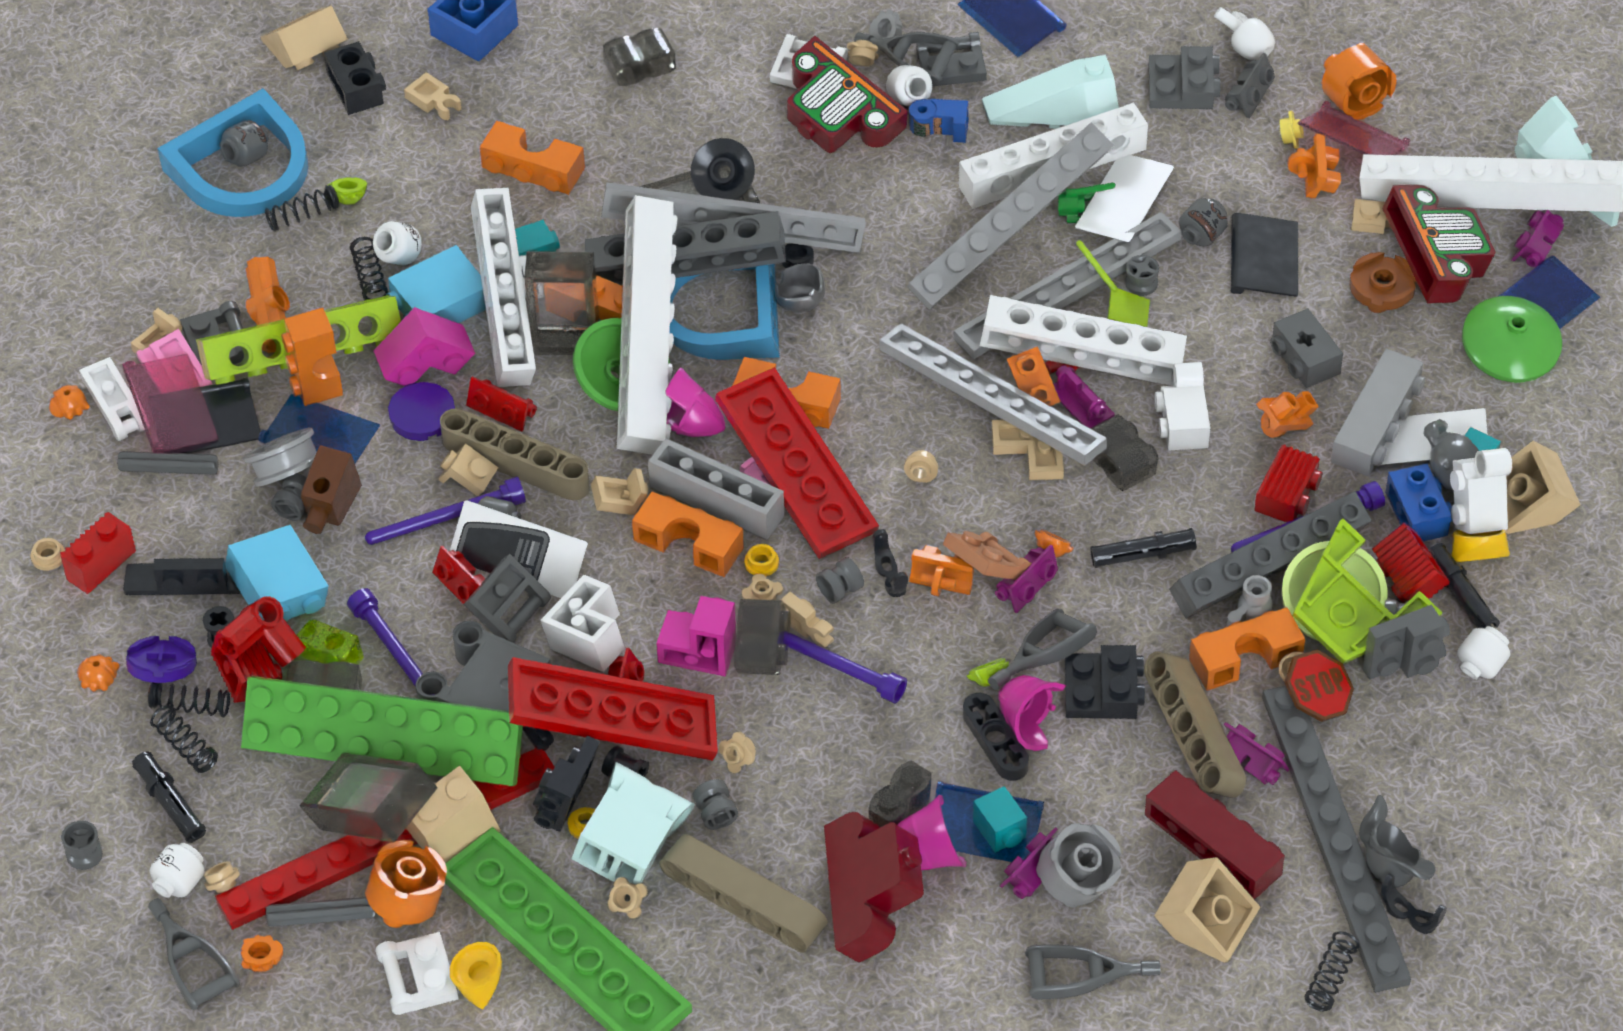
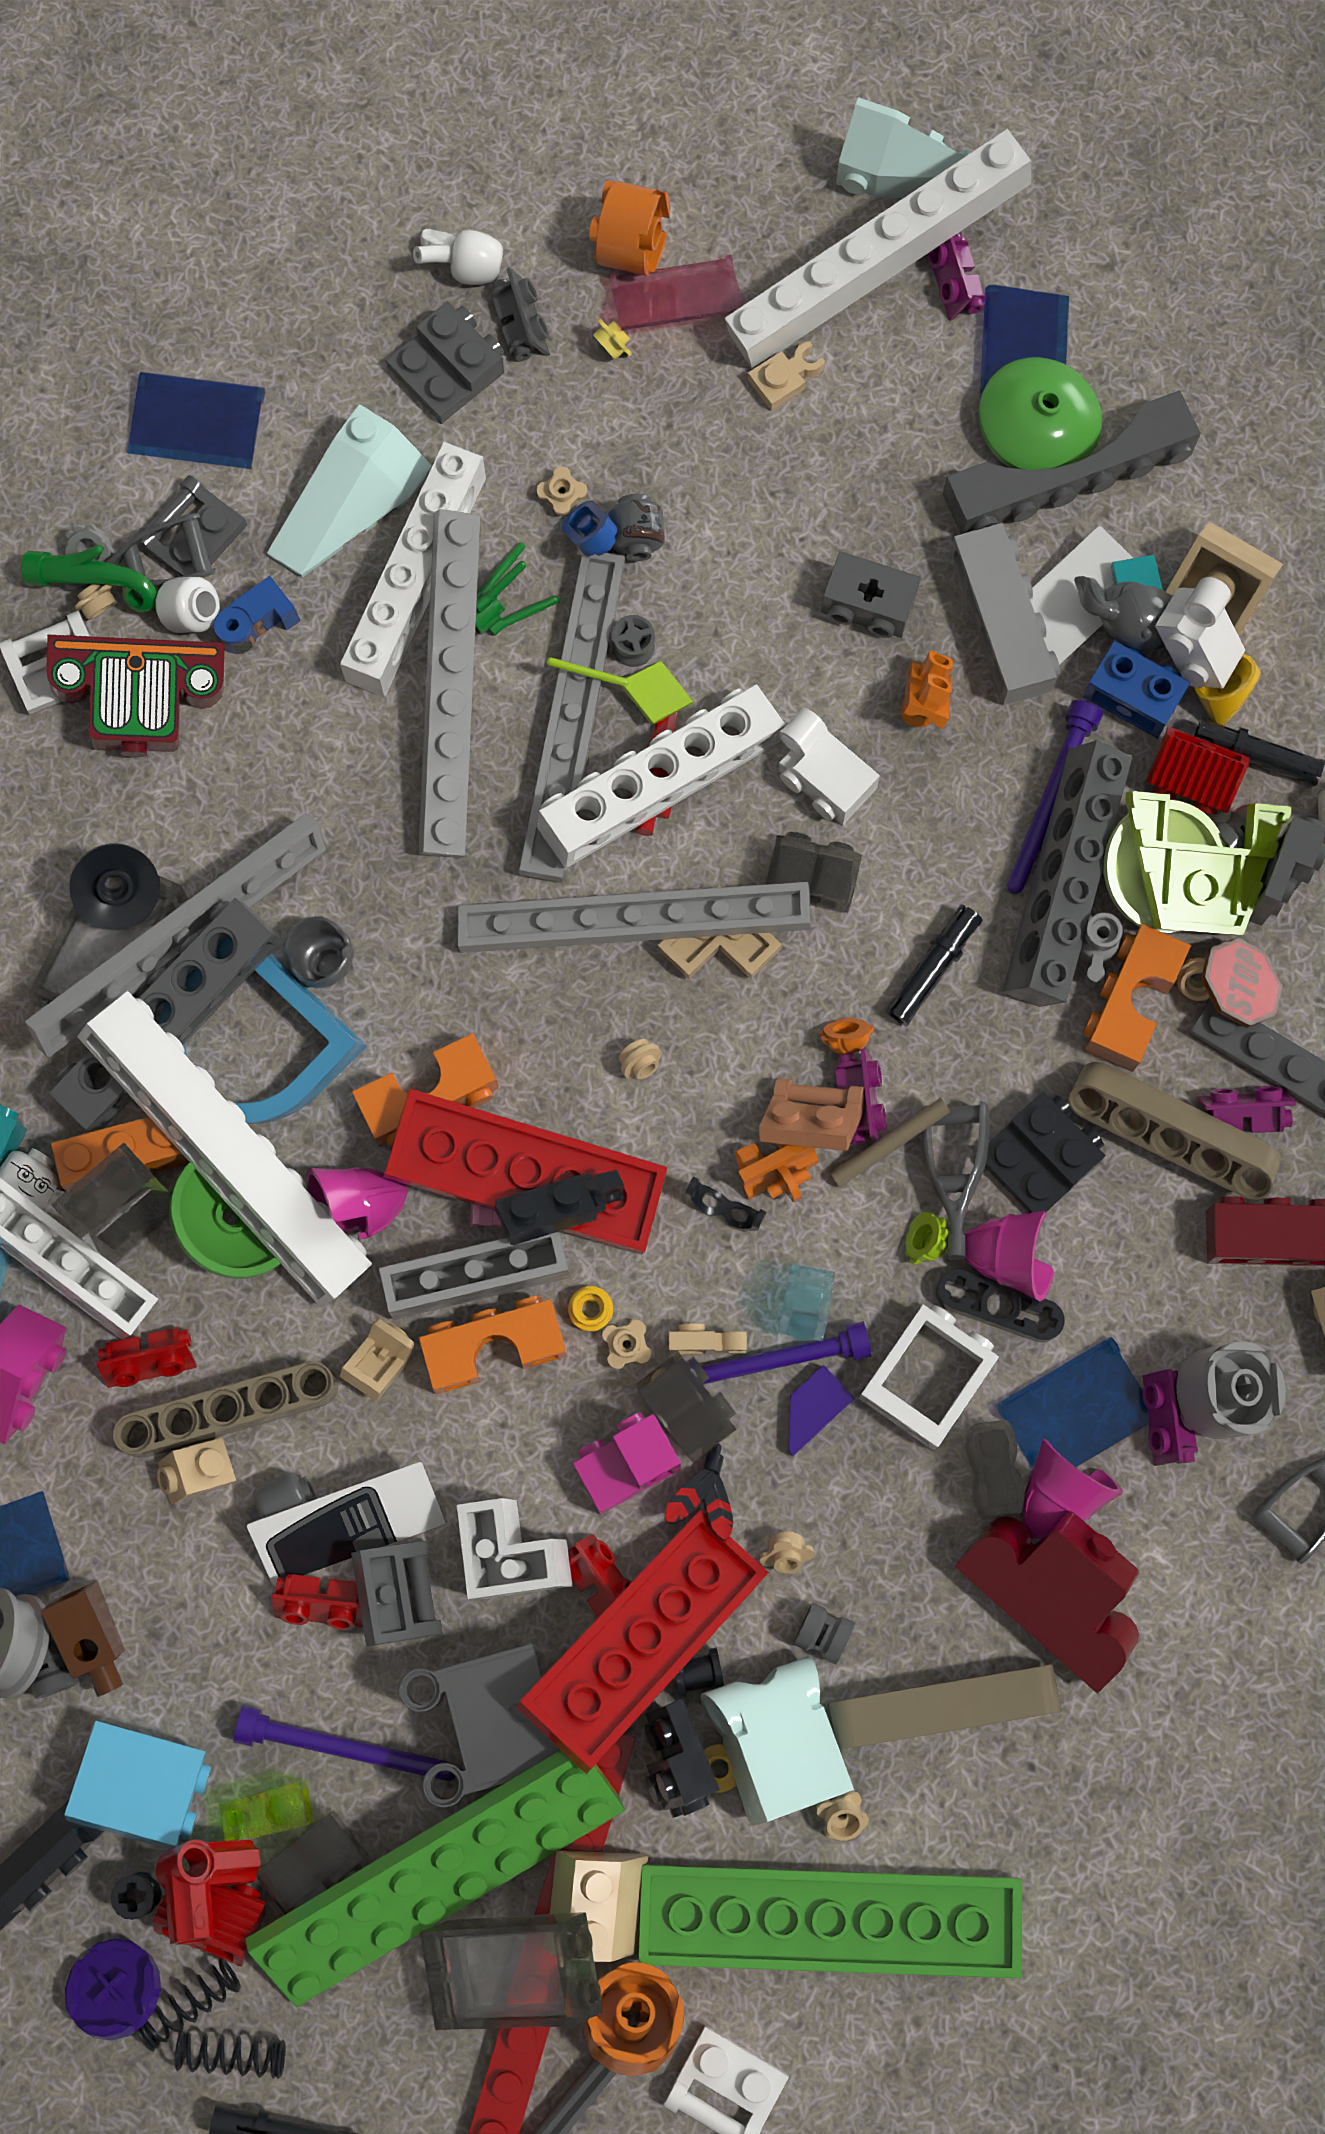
camera: 45 degrees left, 25 degrees up
(97, 672) = (67, 2056): orange animal -> none
(418, 409) = (72, 1439): dark purple tile -> none
(477, 972) = (787, 2037): yellow piece -> none
(509, 491) = (264, 1460): dark purple piece -> none
(727, 686) = (704, 1487): none -> piece
(795, 481) = (557, 1205): none -> black hinge
(798, 254) = (274, 909): black tile -> none
(832, 702) = (814, 1407): none -> dark purple tile
(839, 580) = (691, 1265): dark grey wheel -> none
(852, 19) = (42, 569): none -> green plant
(883, 642) = (806, 1303): none -> clear light blue brick
(928, 755) = (903, 1414): none -> white window
(1000, 819) = (1102, 1401): teal brick -> none
(1019, 607) = (890, 1142): none -> dark tan bar
(1032, 376) = (657, 863): orange hips -> none
(1080, 399) = (712, 842): magenta hinge -> none
(1125, 206) = (518, 529): white sticker -> none
(1173, 203) = (590, 529): none -> blue plate
(1181, 181) = (562, 502): none -> tan plate
(1264, 254) = (720, 512): black piece -> none
(1288, 484) = (1000, 772): red brick -> none
(1313, 166) = (675, 365): orange hips -> none
(1382, 296) = (851, 432): dark orange plate -> none
(1439, 243) = (883, 364): brick -> none
(1566, 390) = (994, 494): none -> dark grey arch

